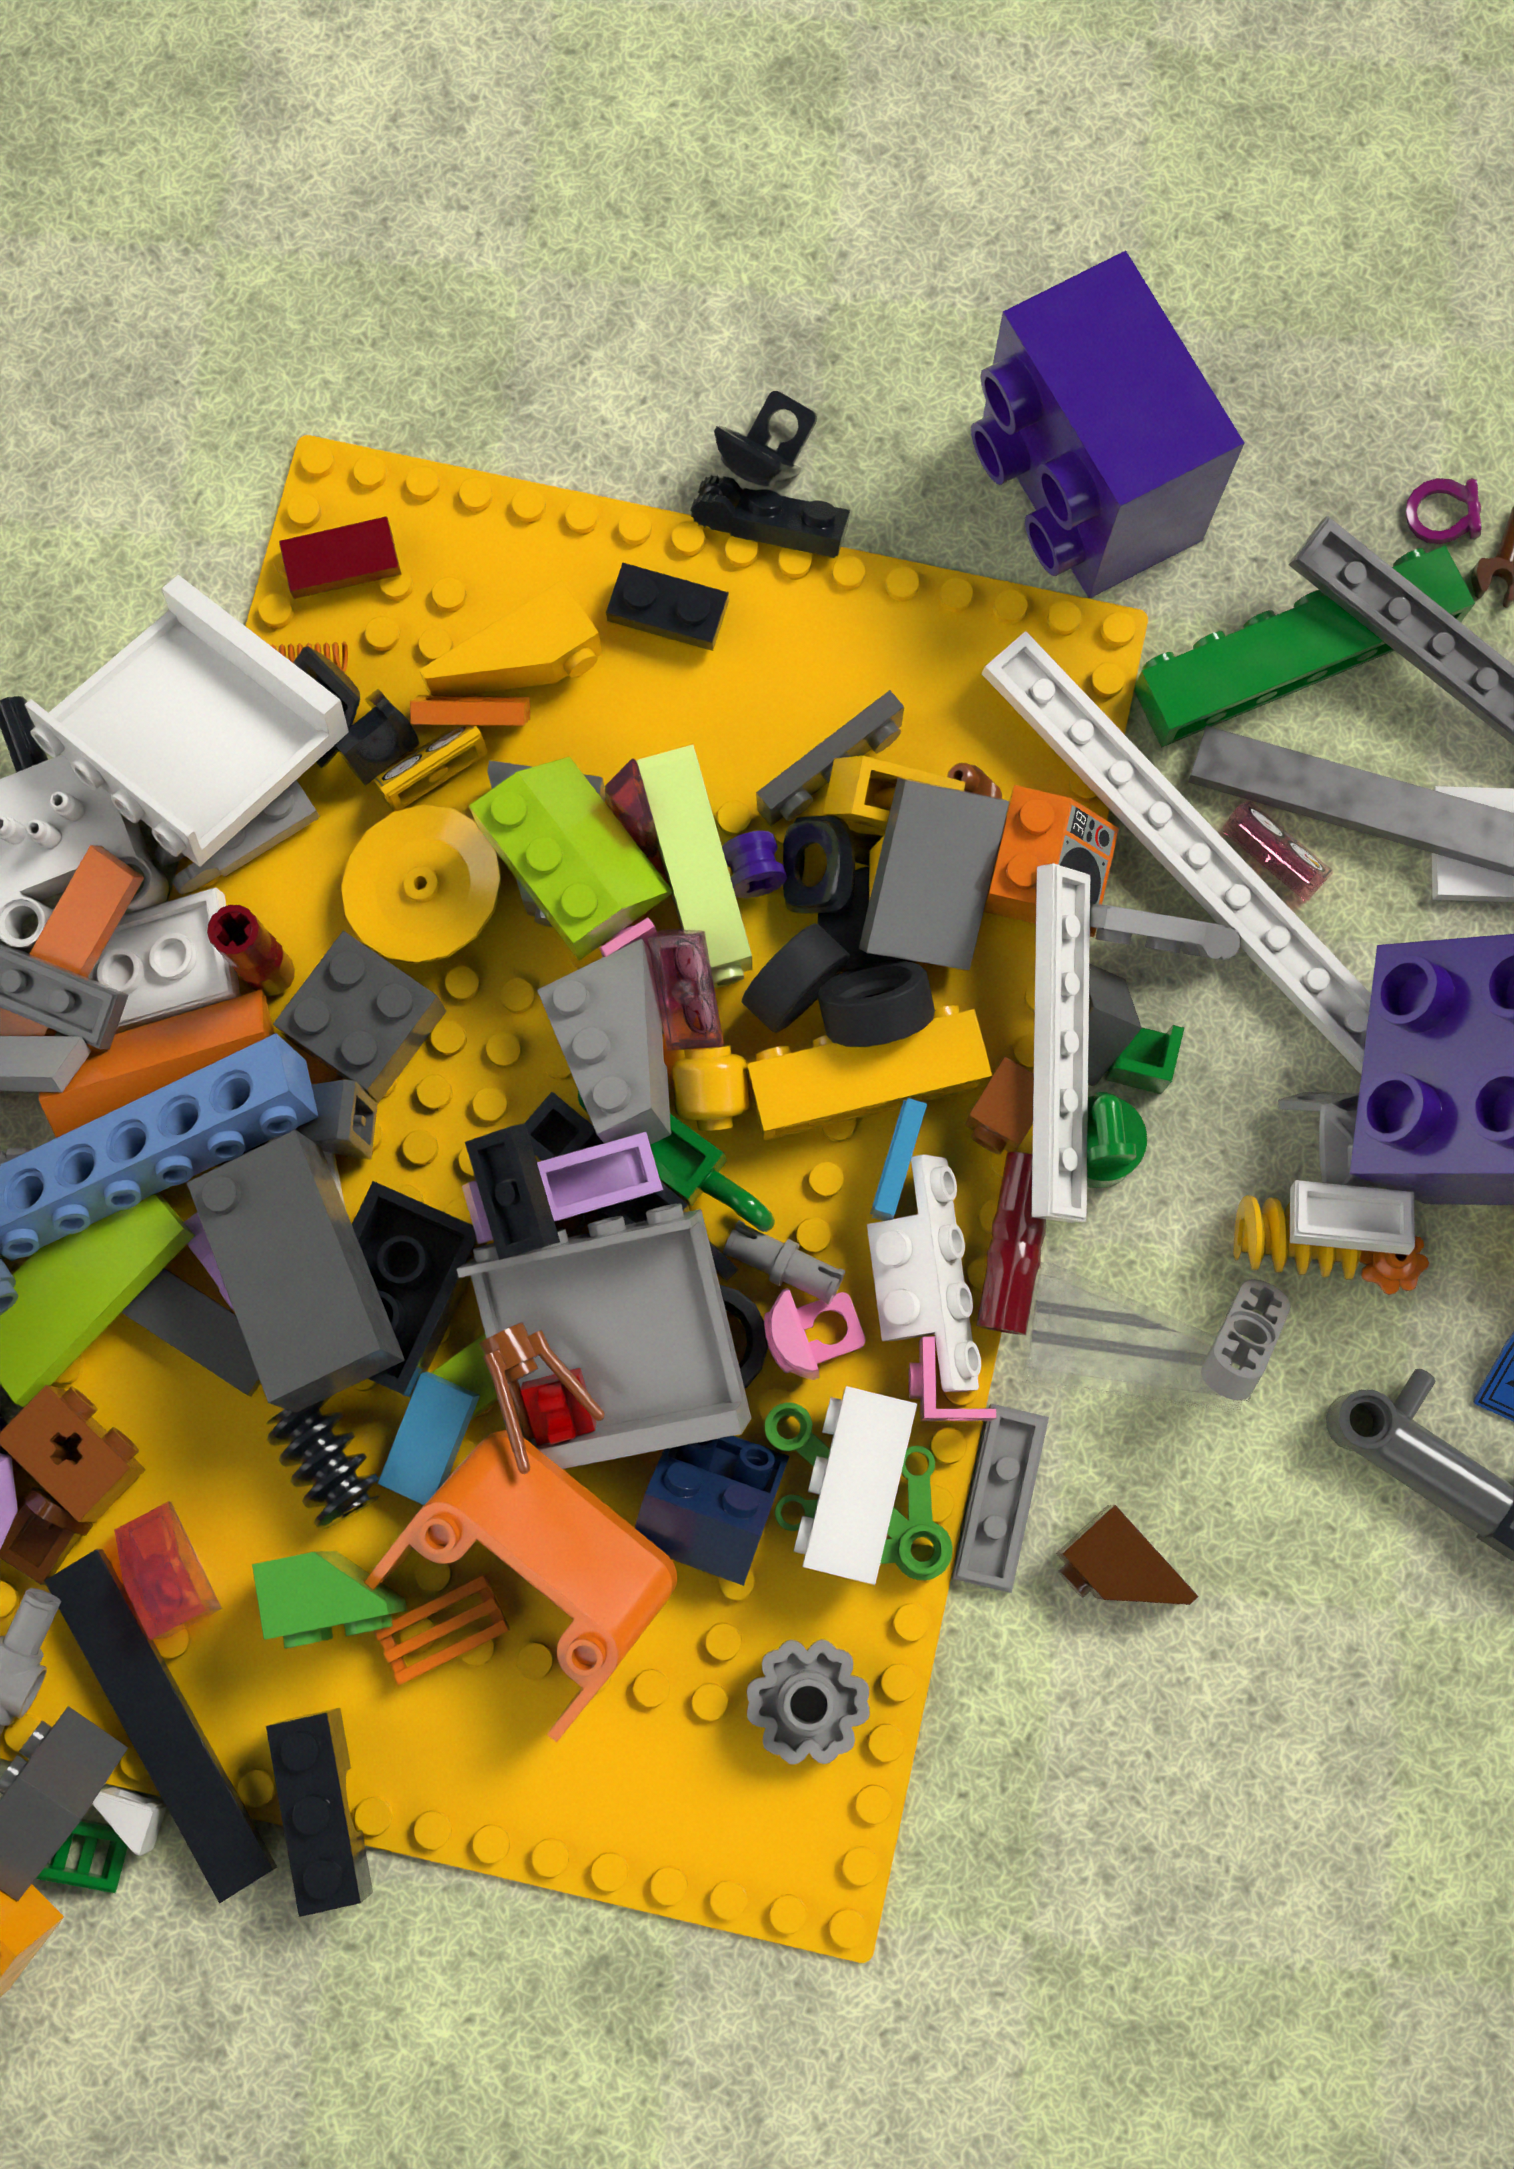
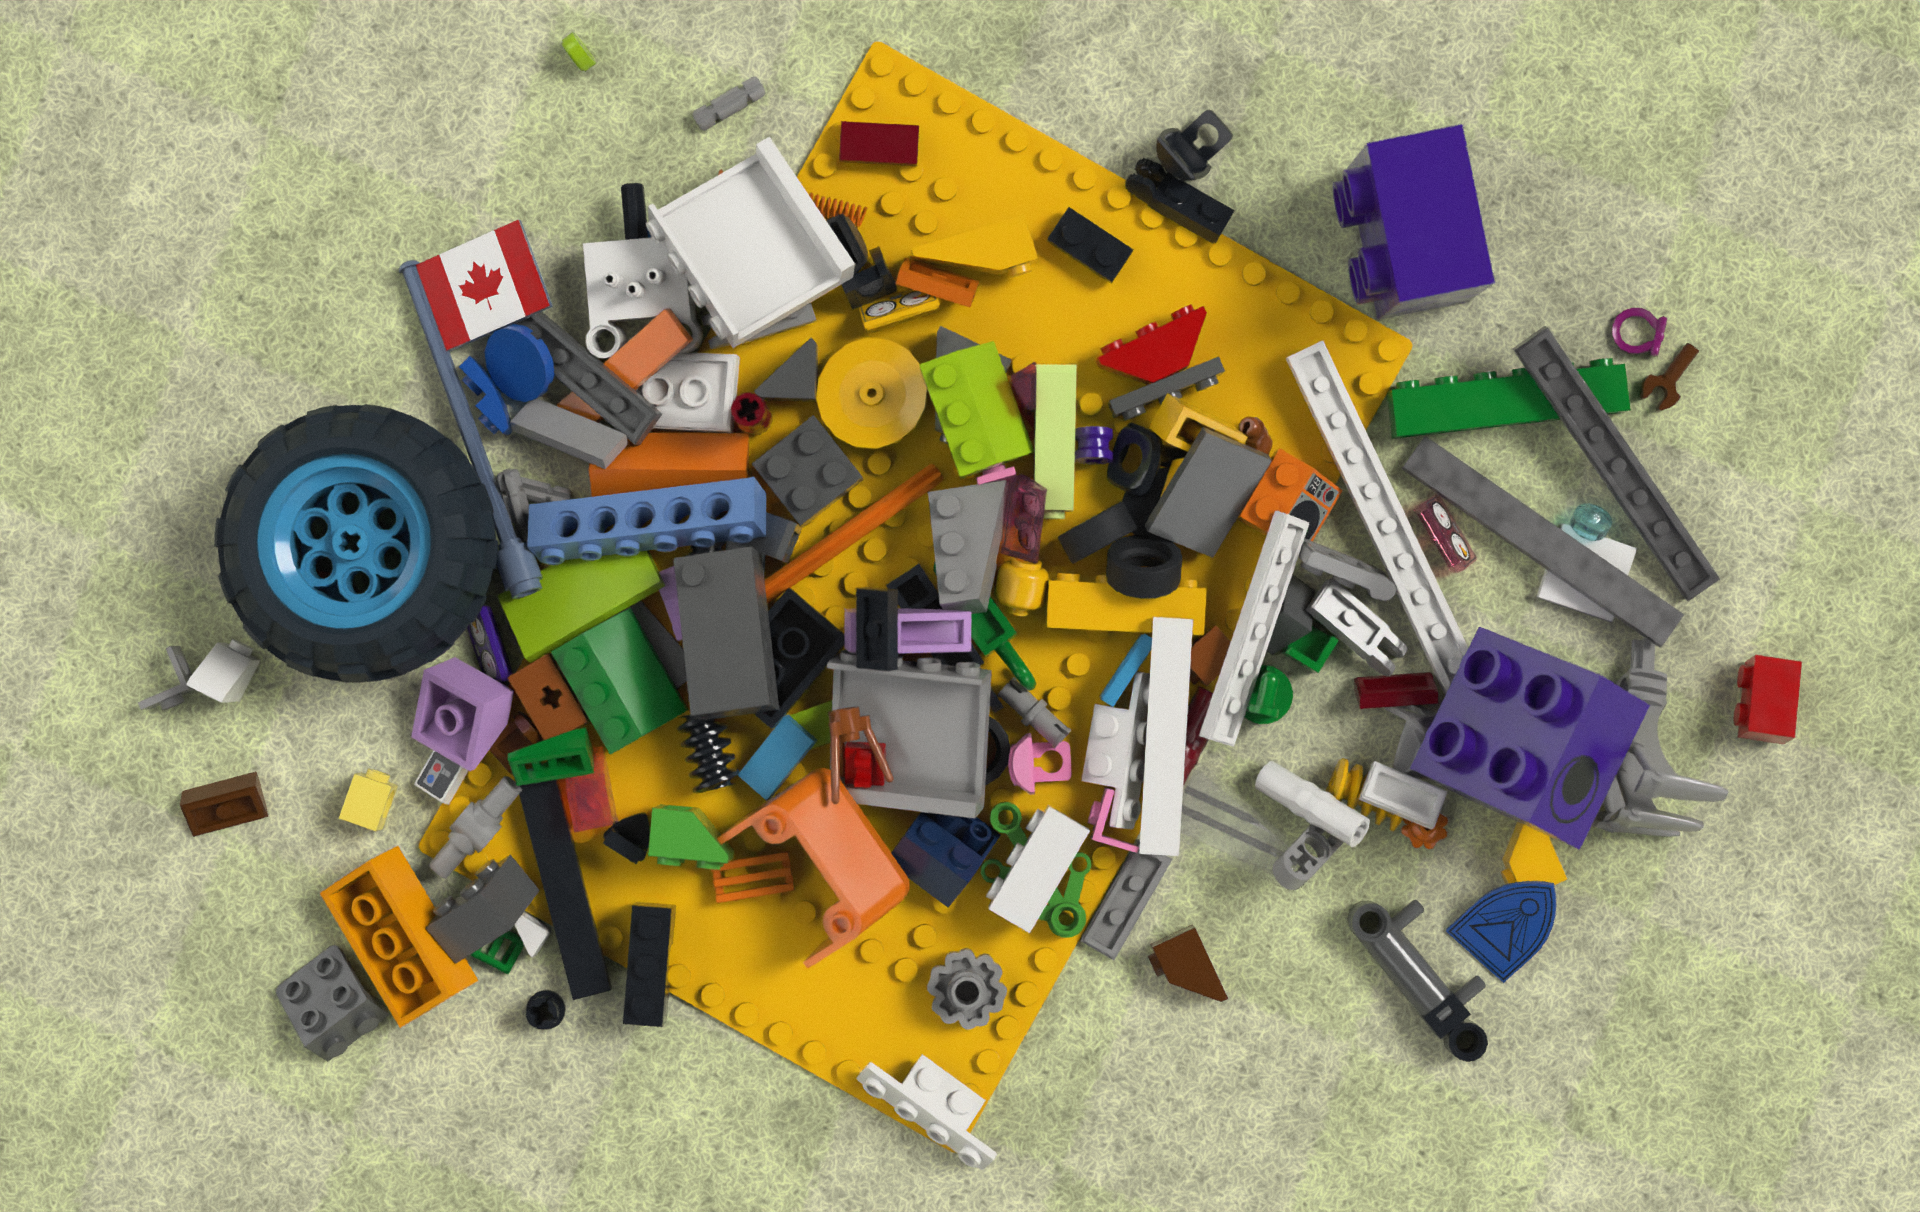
camera: 15 degrees right, 10 degrees up
(101, 1513) = (566, 757): none -> green slope
(122, 569) = (729, 103): none -> light grey axle
(164, 1396) = (619, 680): none -> green slope
(195, 1922) = (555, 1006): none -> black bush
(237, 1628) = (630, 837): none -> black tile
(306, 895) = (794, 378): none -> dark grey slope
(446, 1084) = (852, 531): none -> orange axle
(796, 710) = (1157, 350): none -> red slope
(814, 1894) = (936, 1104): none -> white bracket
(984, 1235) = (1166, 736): none -> white tile
(1203, 1007) = (1356, 626): none -> light grey hinge
(1226, 1271) = (1312, 803): none -> white axle
(1286, 1079) = (1395, 690): none -> dark red tile
(1473, 772) = (1591, 522): none -> clear light blue tile

